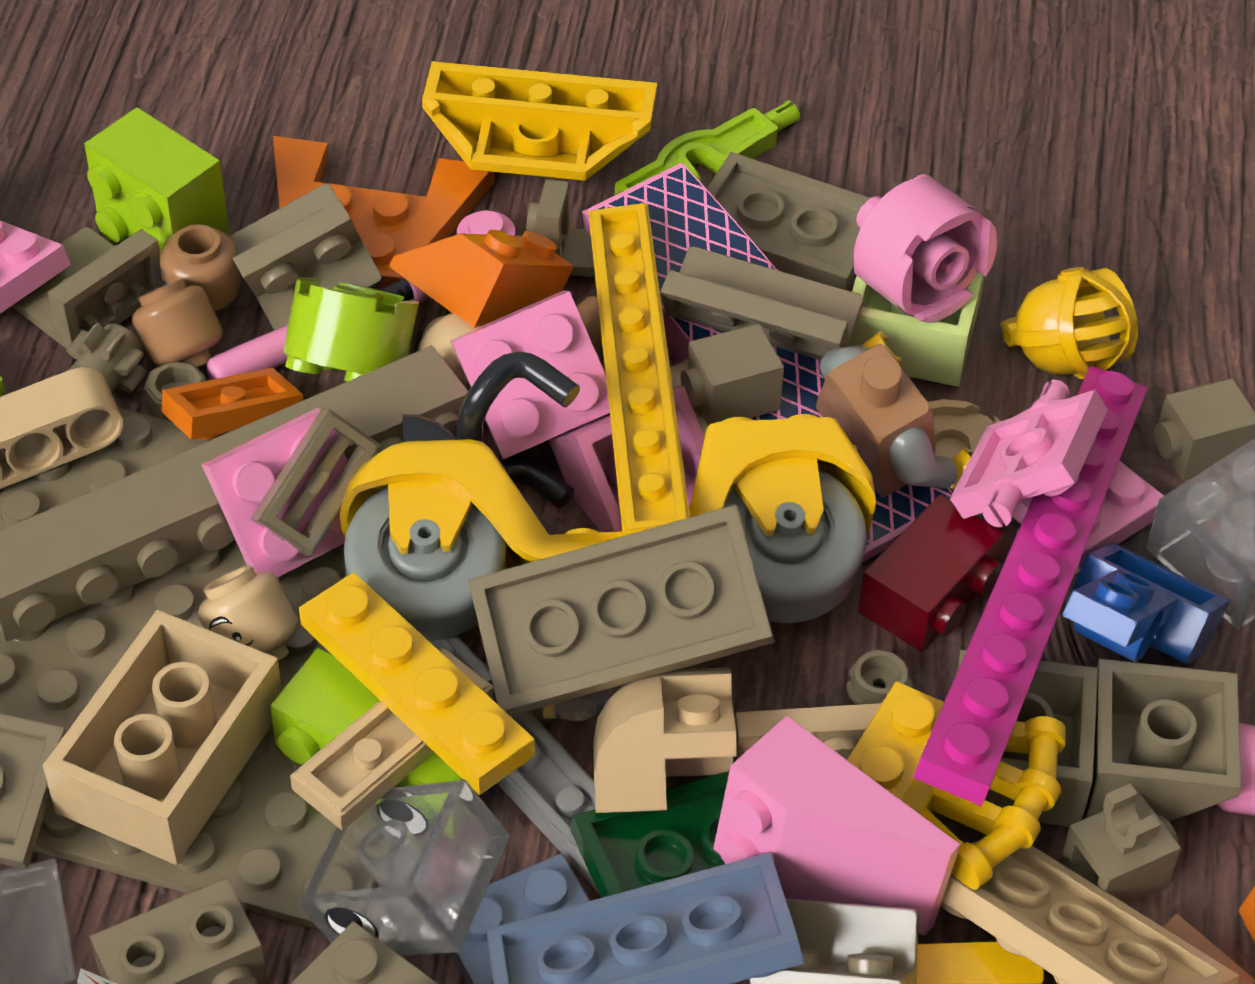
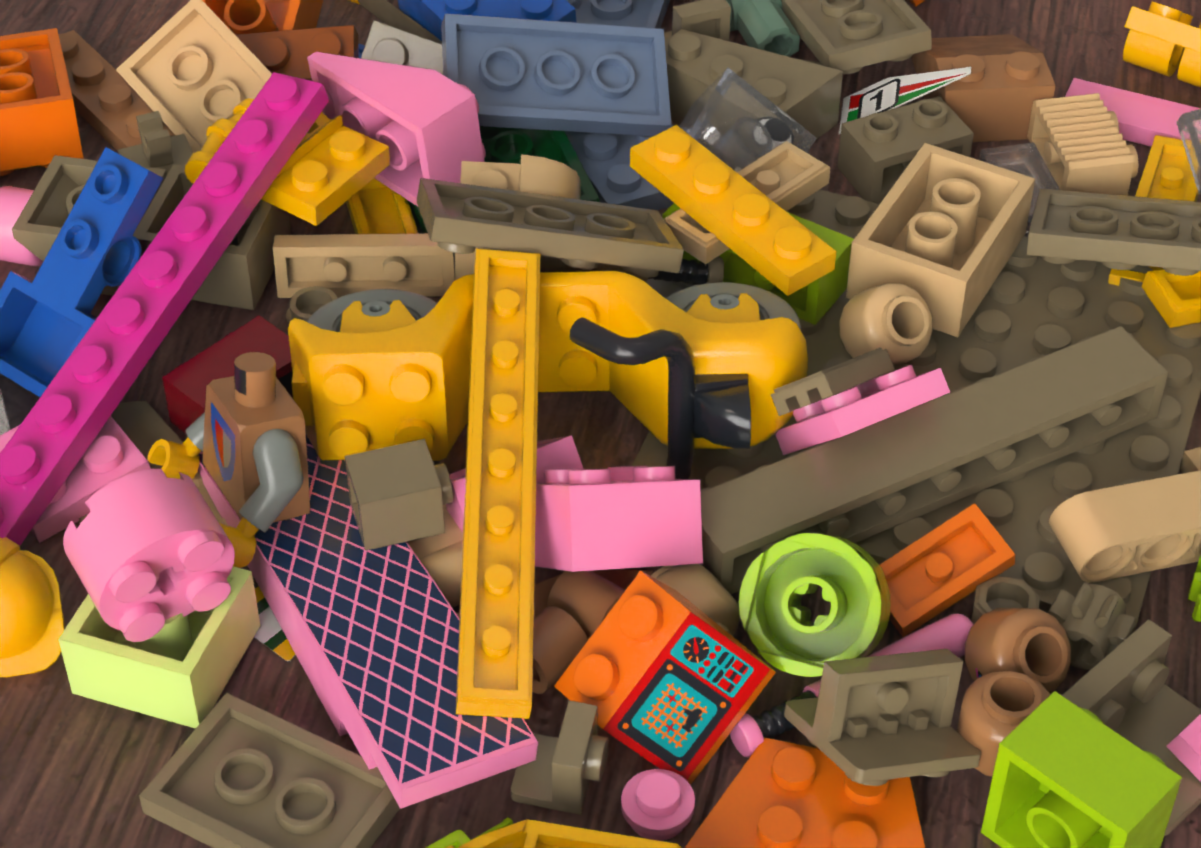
camera: 175 degrees left, 5 degrees down
(738, 294) = (352, 561): dark tan panel -> none
(1030, 454) = (116, 385): bright pink plate -> none

